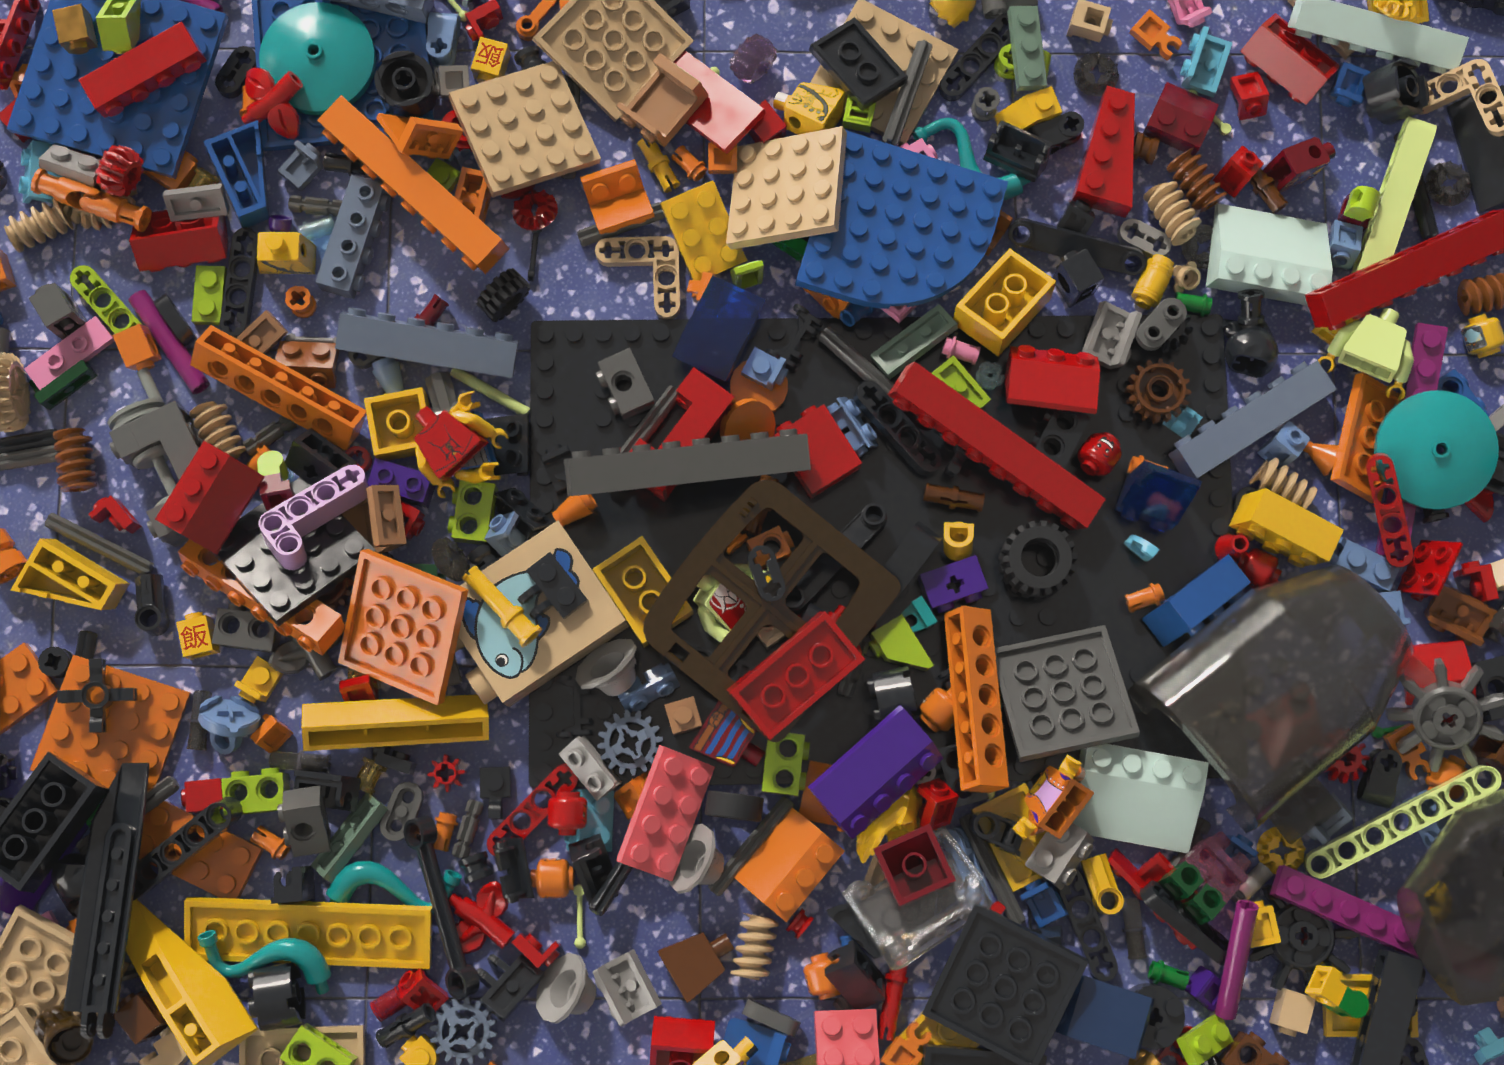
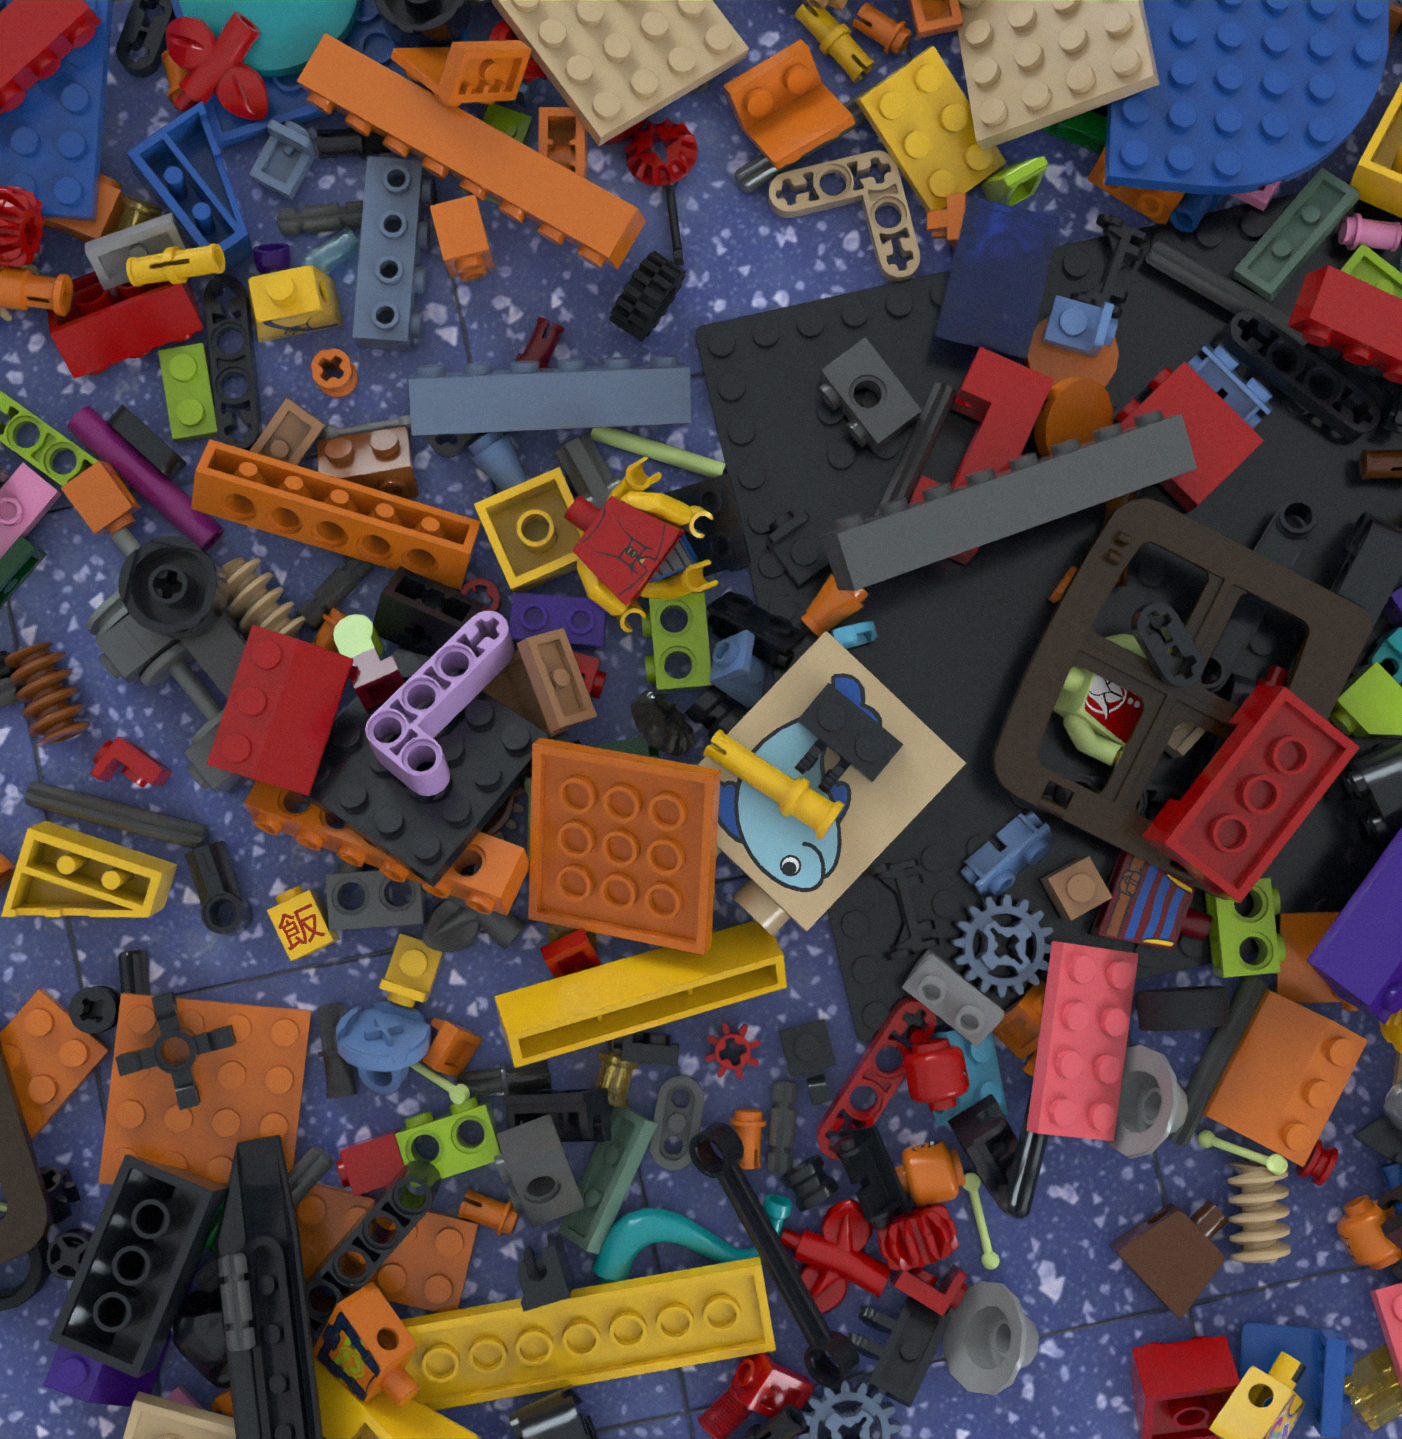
camera: 10 degrees left, 5 degrees up
(94, 859) = (236, 1302): none -> dark grey axle
(166, 392) = (166, 562): none -> black brick
(170, 907) = (368, 1348): none -> orange torso
(216, 215) = (175, 265): none -> yellow pin
(267, 762) = (457, 1093): none -> yellowish green hinge
(295, 950) = (560, 1370): teal animal -> none
(397, 235) = (462, 238): none -> orange brick
(534, 915) = (918, 1237): none -> red gear
(582, 530) = (855, 634): none -> medium azure tile
(609, 668) = (946, 838): light grey hat -> none
(626, 988) = (1079, 1314): light grey bracket -> none
(635, 582) = (963, 702): yellow brick -> none
(768, 915) = (1274, 1163): none -> yellowish green hinge
(771, 1017) = (1306, 1311): dark grey beam -> none
(775, 534) = (1162, 582): orange brick -> none

